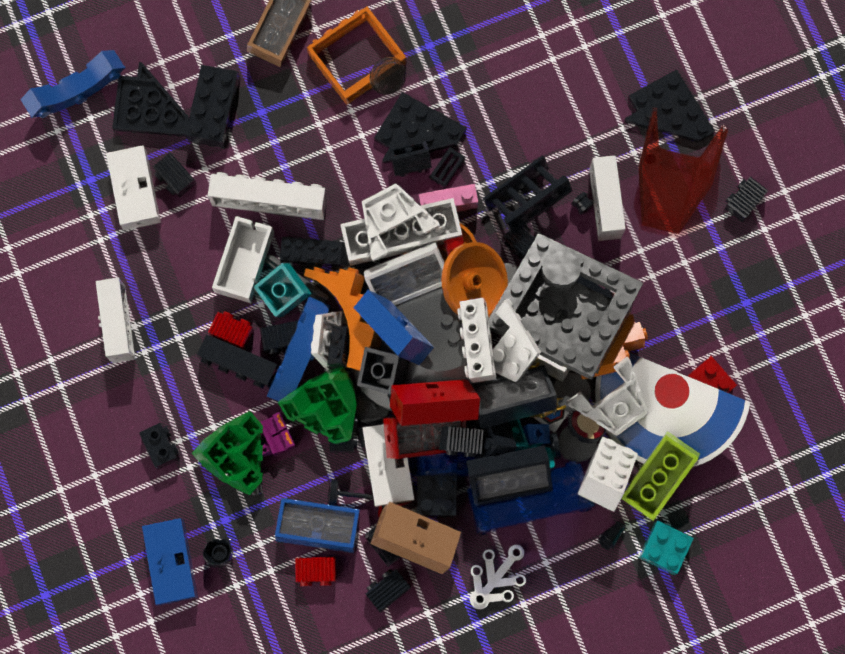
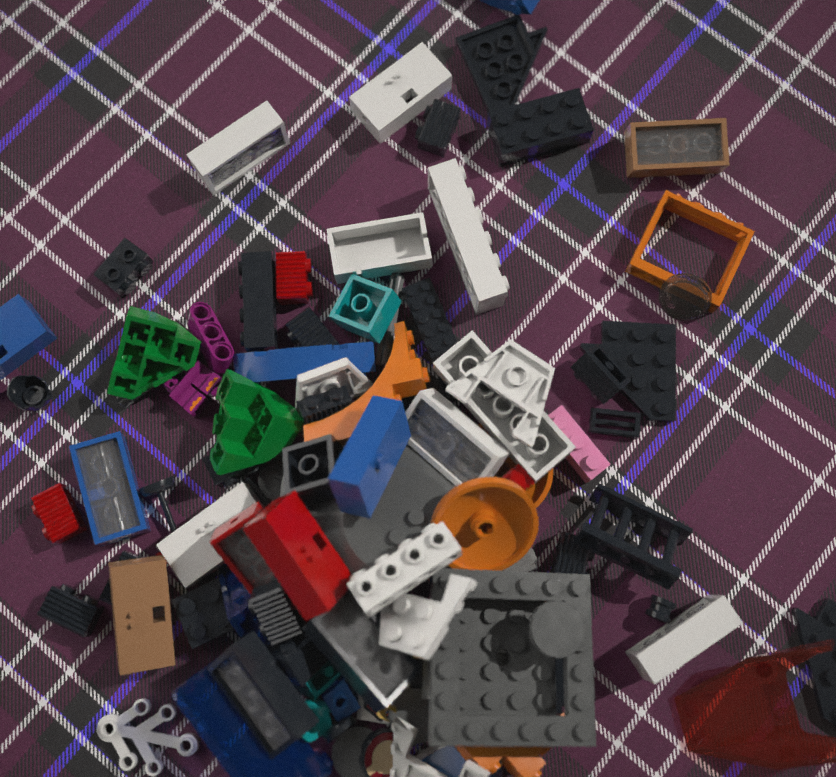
camera: 65 degrees right, 0 degrees up
(237, 405) = (210, 327): none -> magenta beam

